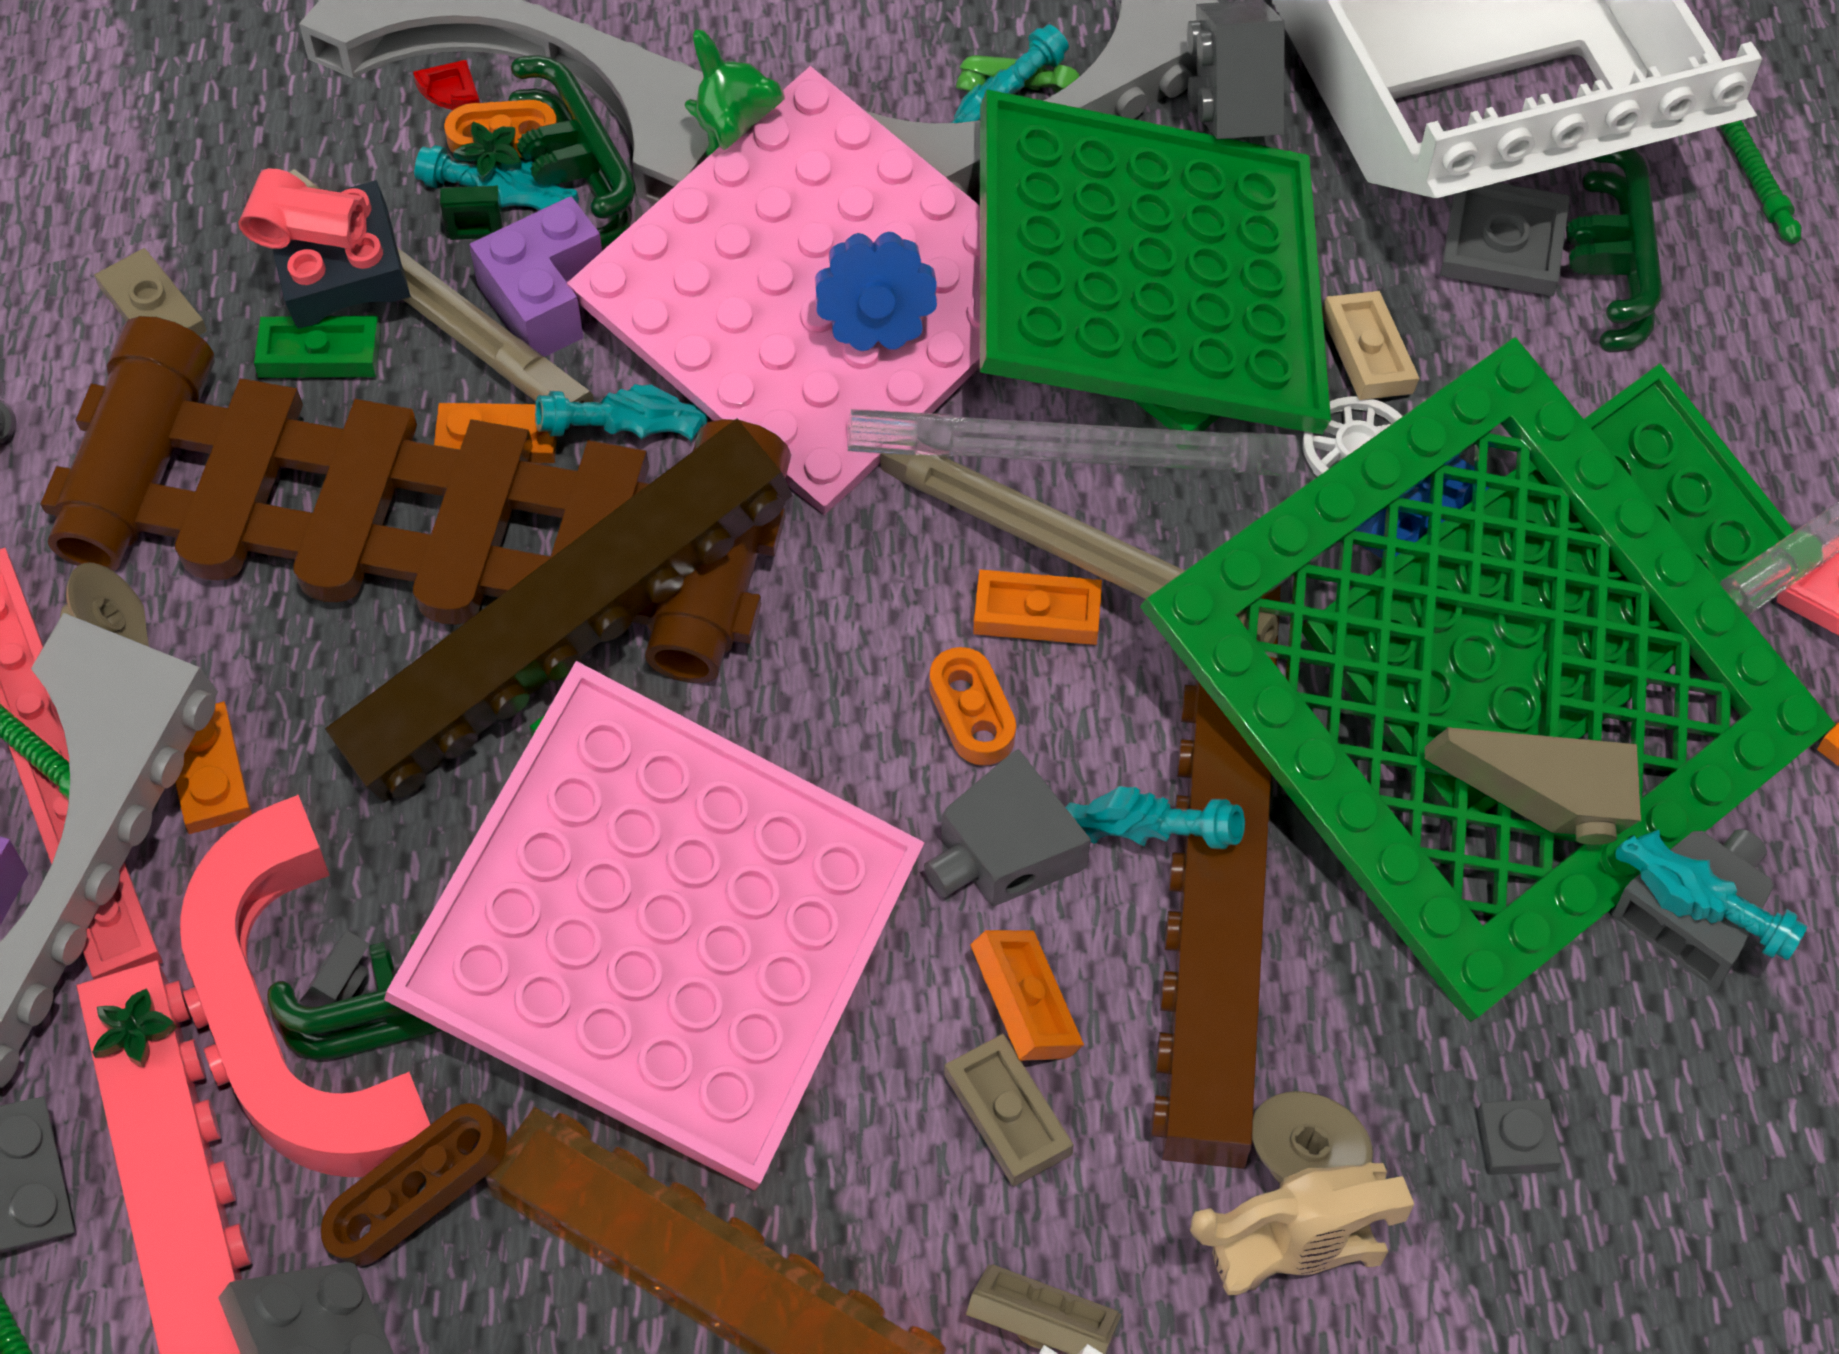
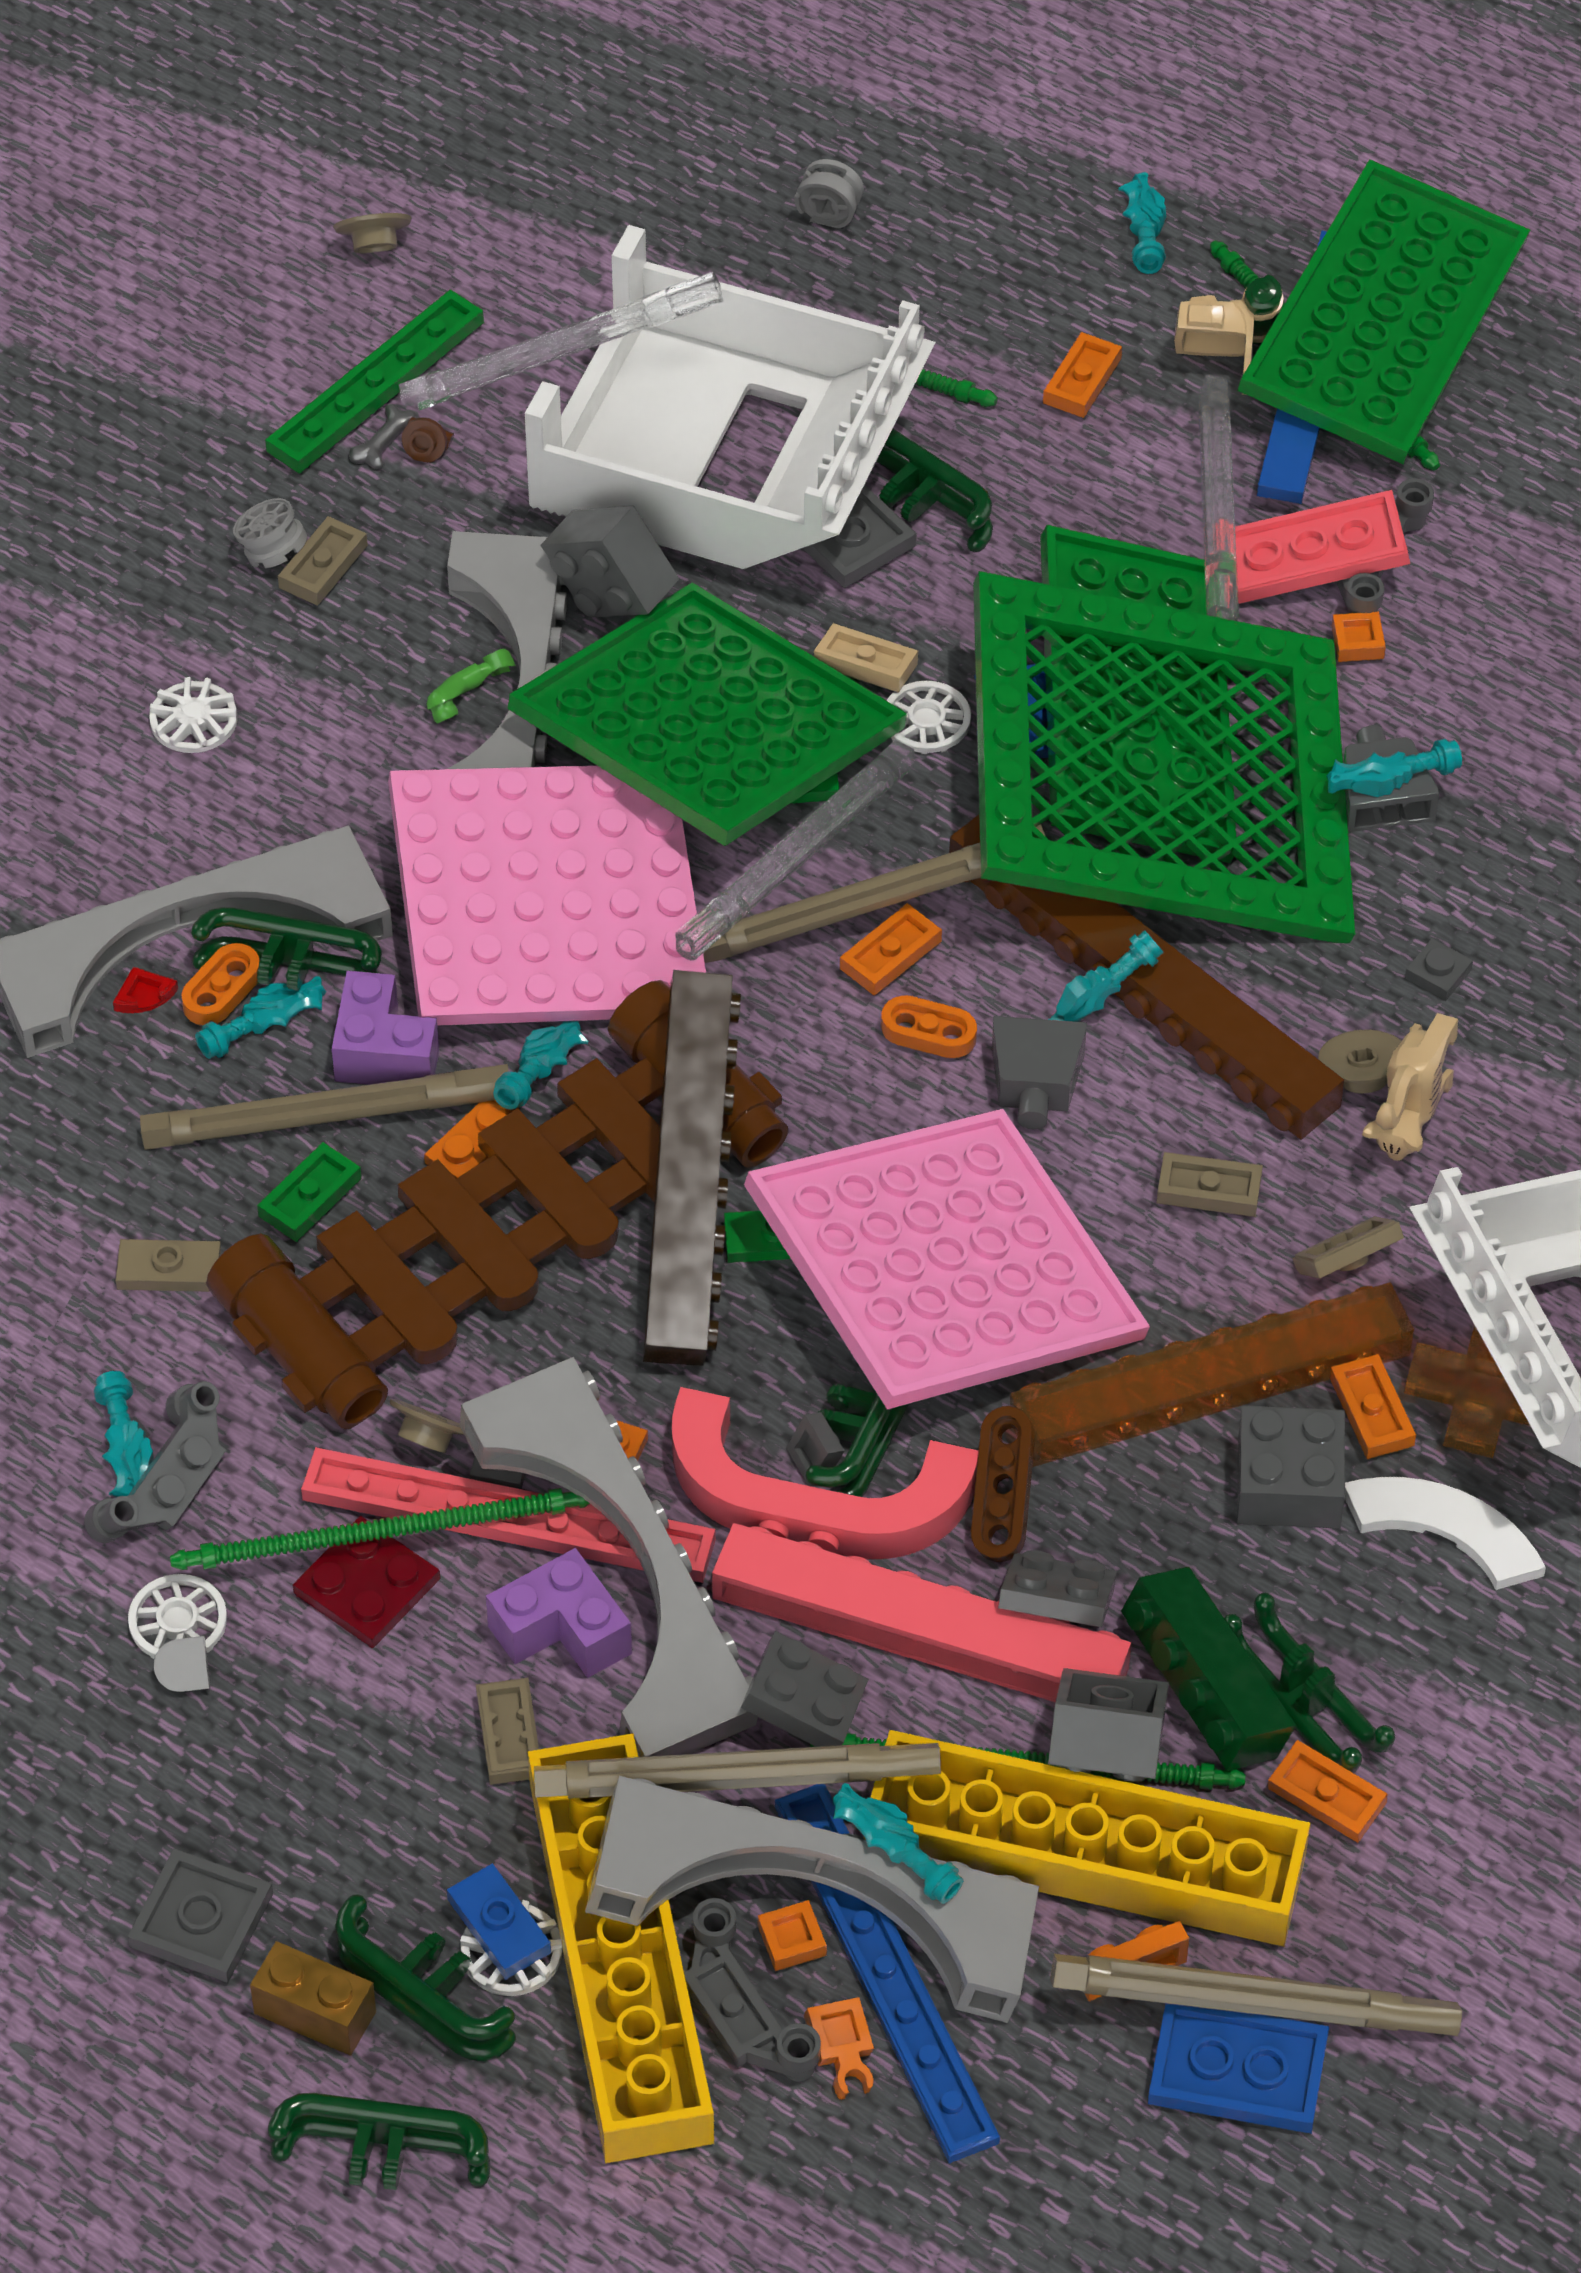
camera: 50 degrees left, 5 degrees down
(132, 1028) = (775, 1556): dark green plant -> none
(287, 209) = (233, 1114): coral piece -> none
(329, 278) = (263, 1123): black brick -> none
(471, 211) = (283, 1040): dark green tile -> none
(490, 150) = (244, 996): dark green plant -> none
(729, 95) = (385, 832): green animal -> none
(875, 291) = (615, 853): blue plant -> none
(1026, 995) = (1132, 1123): orange plate -> none
(1045, 48) = (474, 703): teal piece -> none
(1553, 781) = (1261, 783): dark tan slope -> none

